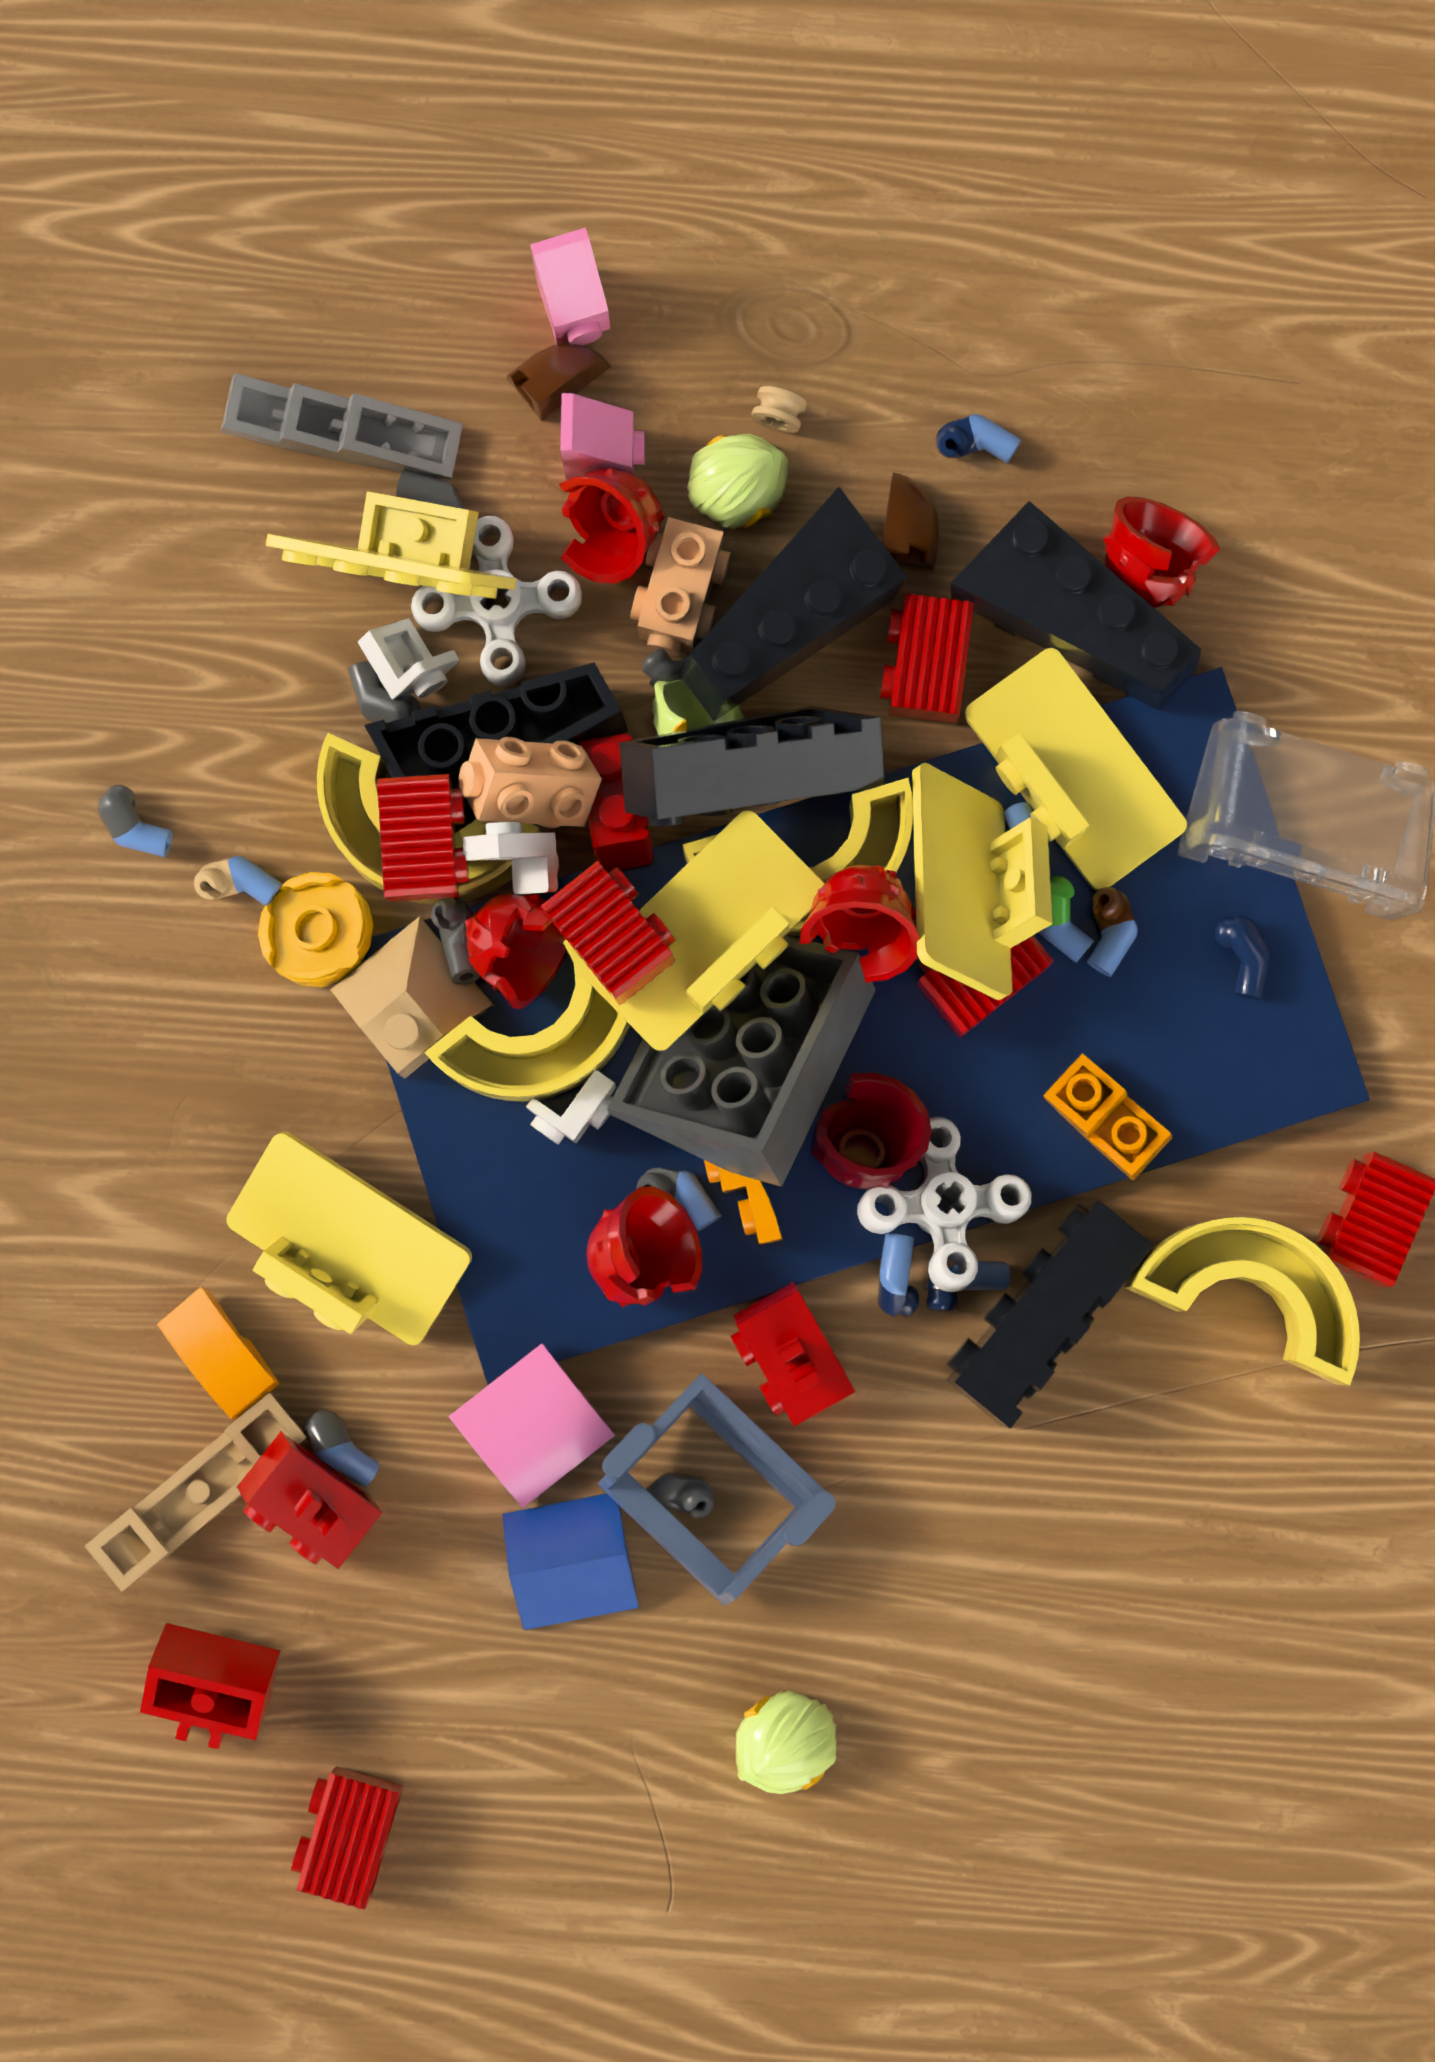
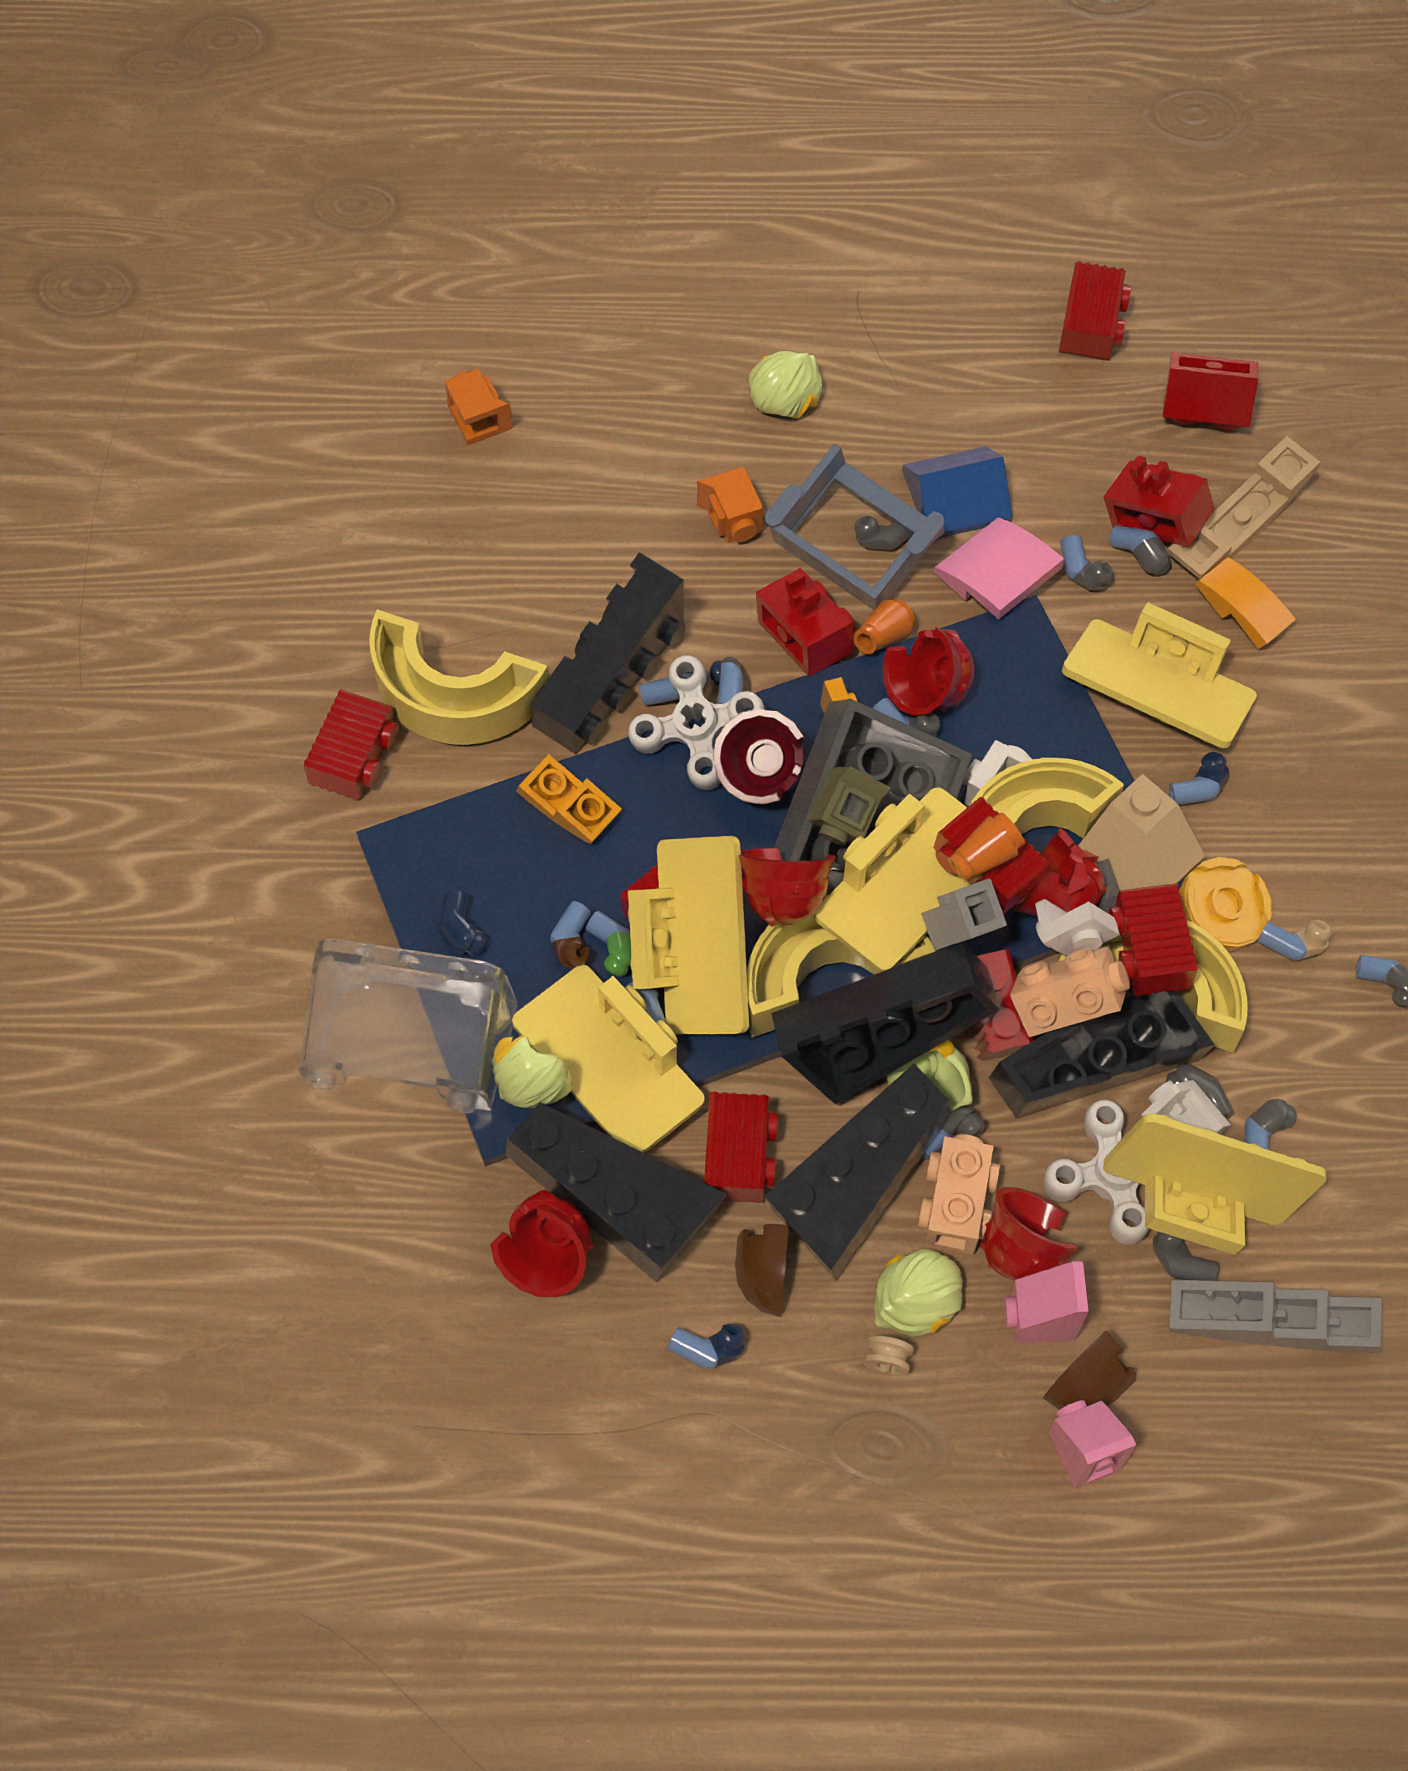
camera: 175 degrees right, 20 degrees down
(312, 1097) = (1206, 782): none -> arm
(316, 652) = (1266, 1120): none -> dark grey arm
(422, 1423) = (1089, 575): none -> arm
(618, 911) = (987, 847): none -> orange cone
(661, 860) = (964, 915): none -> light grey brick
(690, 1342) = (886, 625): none -> orange cone
(779, 1014) = (846, 804): none -> olive window
(872, 1544) = (731, 504): none -> orange window
(1172, 735) = (528, 1076): none -> yellowish green hair
(1211, 1734) = (477, 406): none -> orange window

